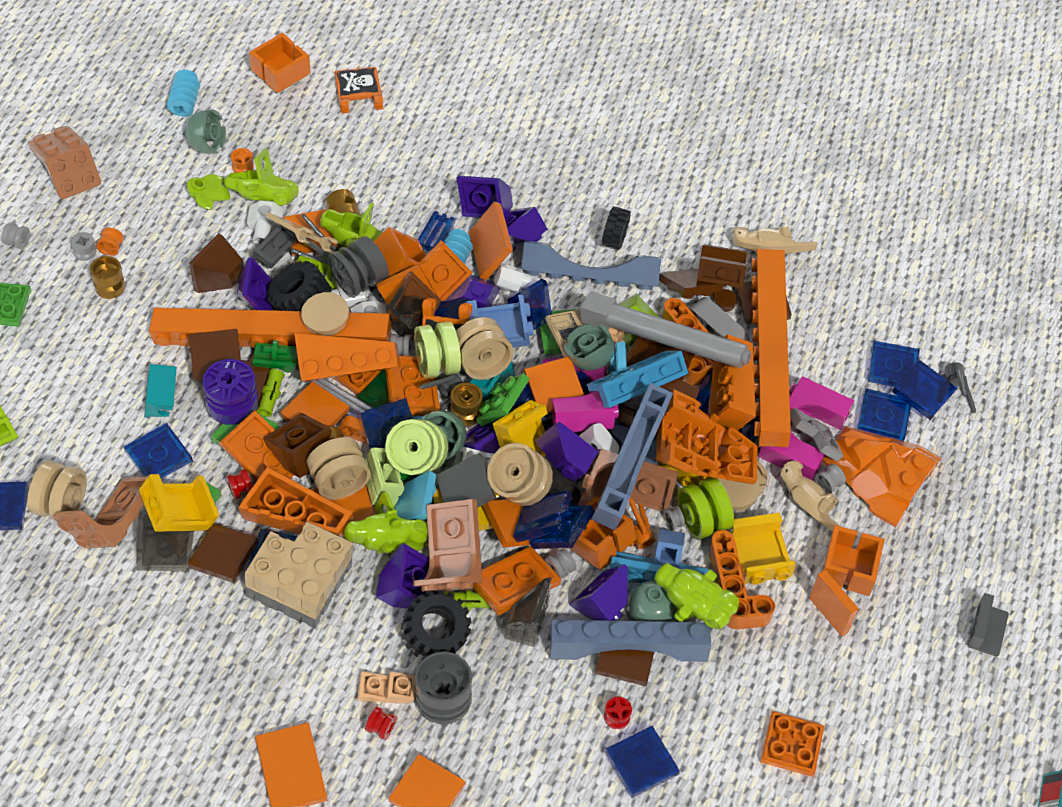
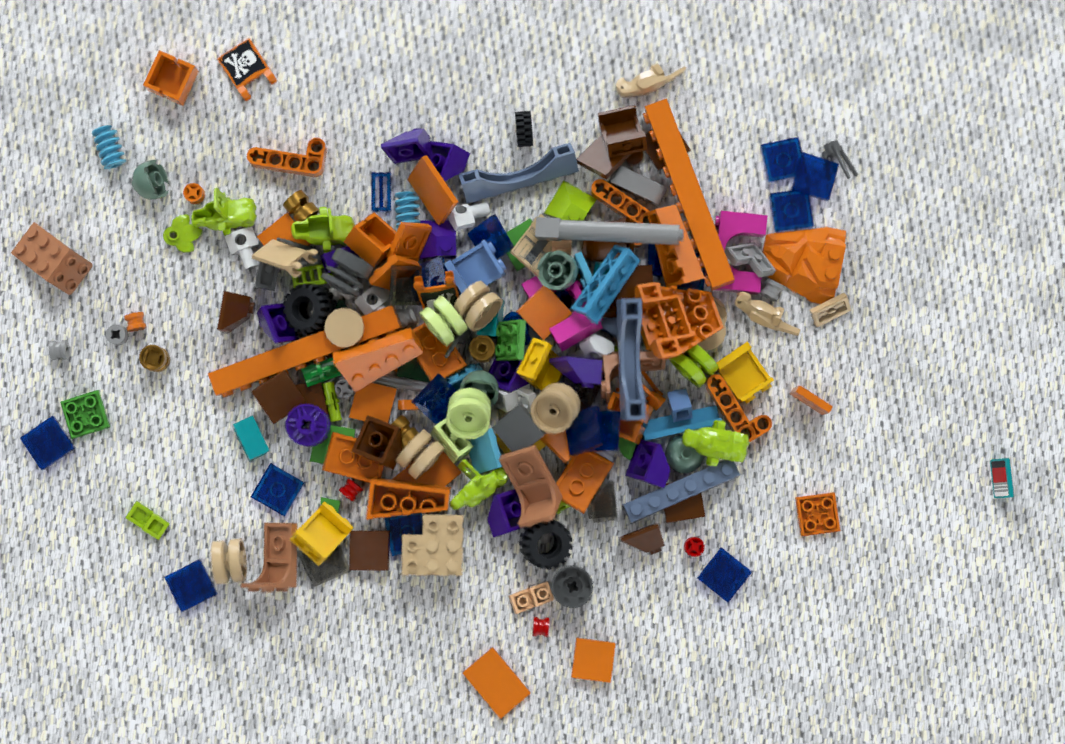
camera: 25 degrees left, 30 degrees up
(290, 379) = (343, 390): none -> light grey wheel
(370, 179) = (287, 157): none -> orange beam
(557, 670) = (645, 539): none -> reddish brown slope
(585, 573) = (626, 448): none -> bright green tile
(674, 518) = (672, 375): light grey bush -> none
(852, 566) = (811, 357): orange piece -> none
(872, 526) = (829, 308): none -> tan tile
(988, 627) = (921, 363): dark grey panel -> none

